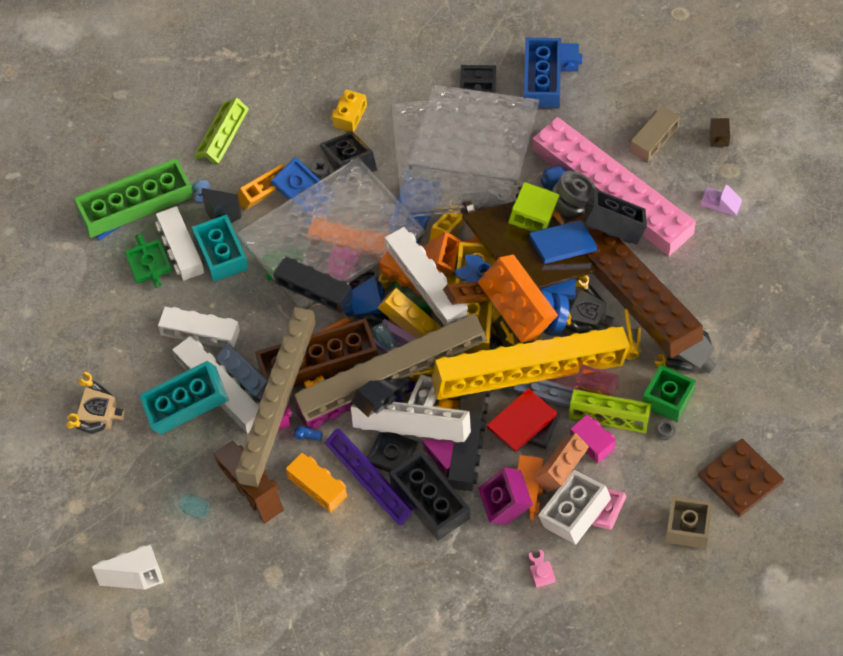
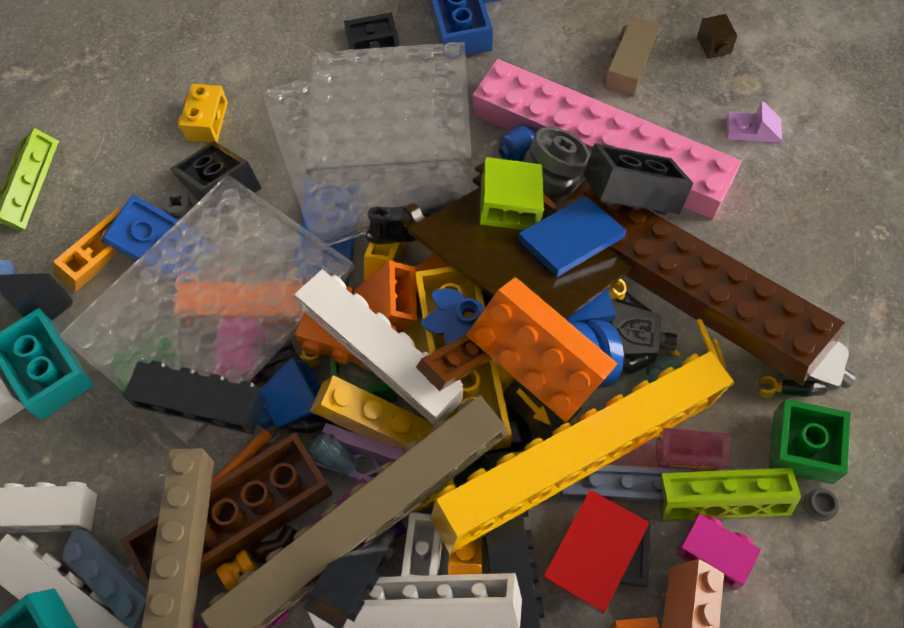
camera: 15 degrees left, 5 degrees up
(451, 211) = (388, 224): none -> black piece

